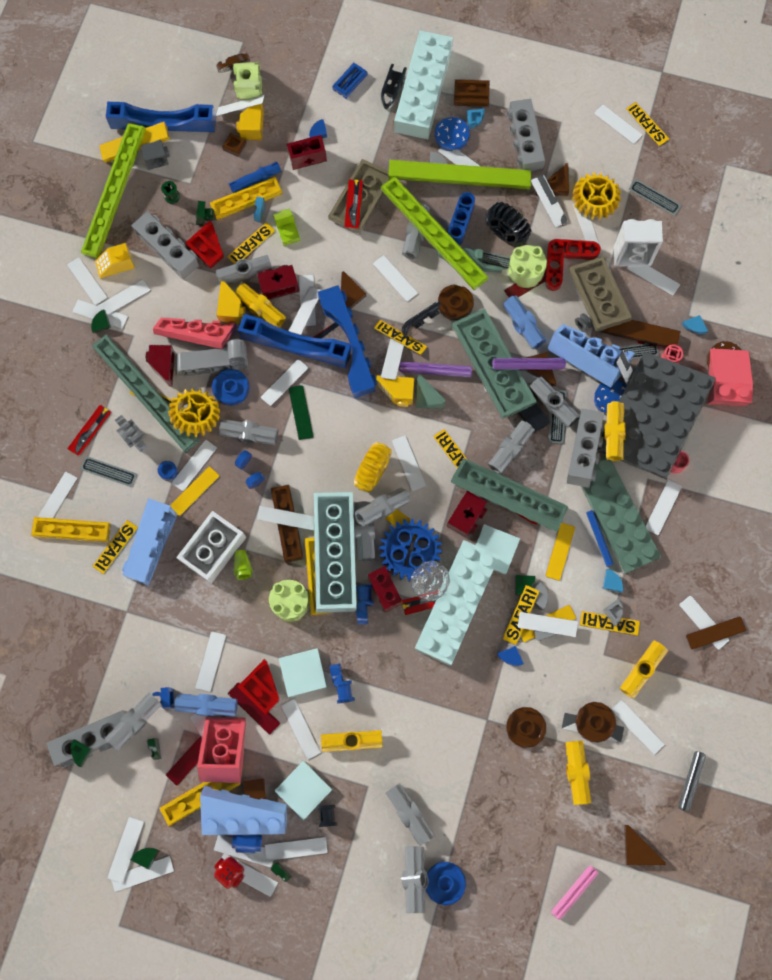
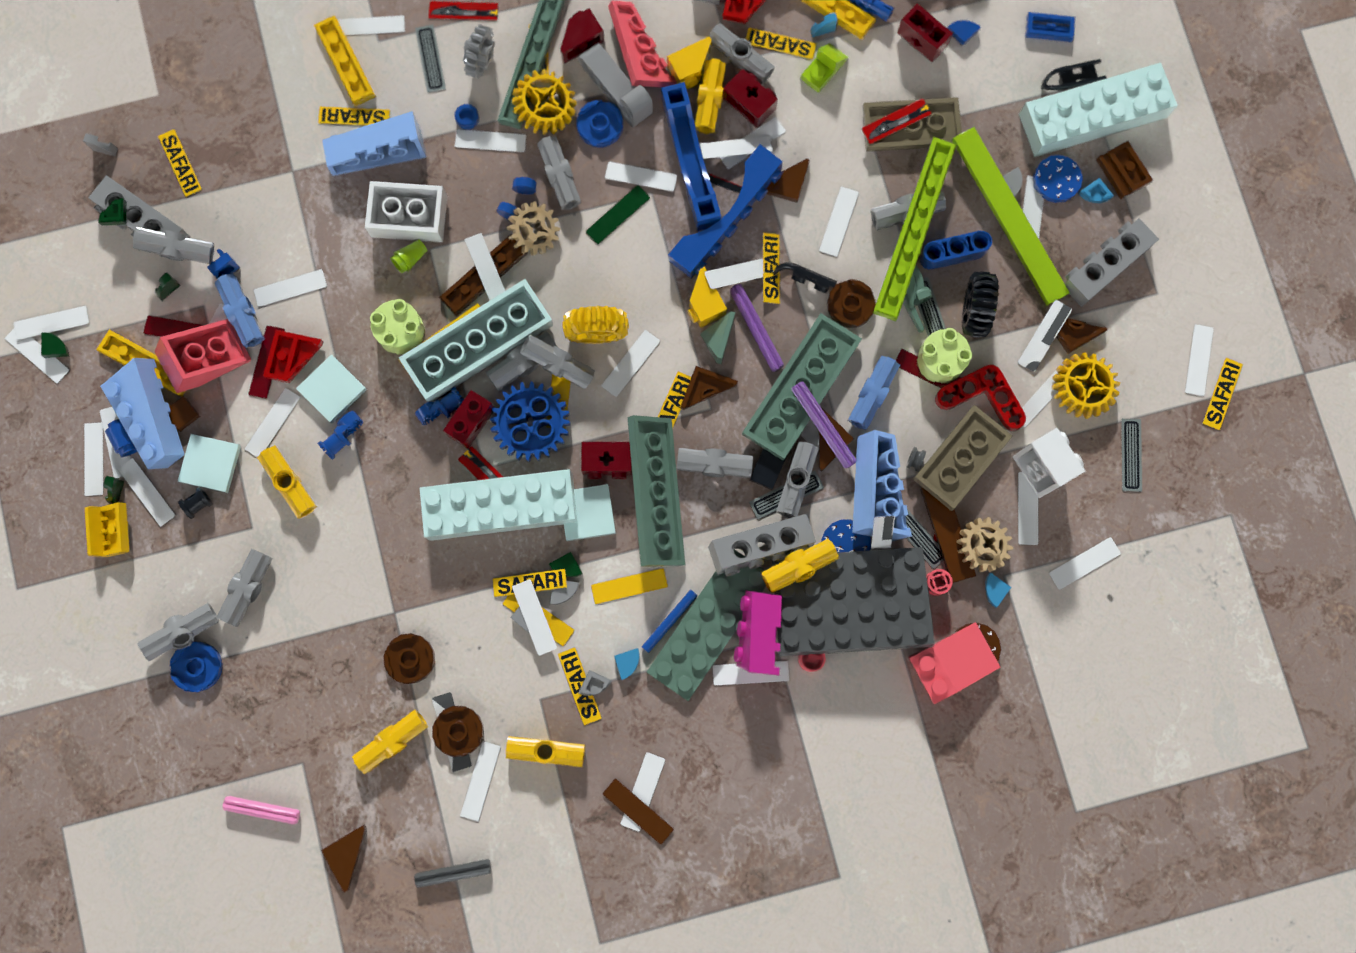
camera: 55 degrees right, 5 degrees up
(15, 740) = (93, 143): none -> light grey tile
(67, 688) = (179, 162): none -> sticker
(192, 493) = (462, 158): yellow sticker -> none
(229, 872) = (81, 438): red head -> none
(280, 464) = (543, 231): none -> tan gear
(309, 891) = (107, 530): none -> yellow bracket
(430, 581) = (502, 460): clear tile -> none
(453, 424) = (705, 385): none -> reddish brown tile
(511, 656) = (476, 598): blue tile -> none
(645, 484) = (758, 632): none -> dark pink wedge
(664, 314) = (973, 543): none -> tan gear
(708, 267) = (1084, 563): none -> white sticker

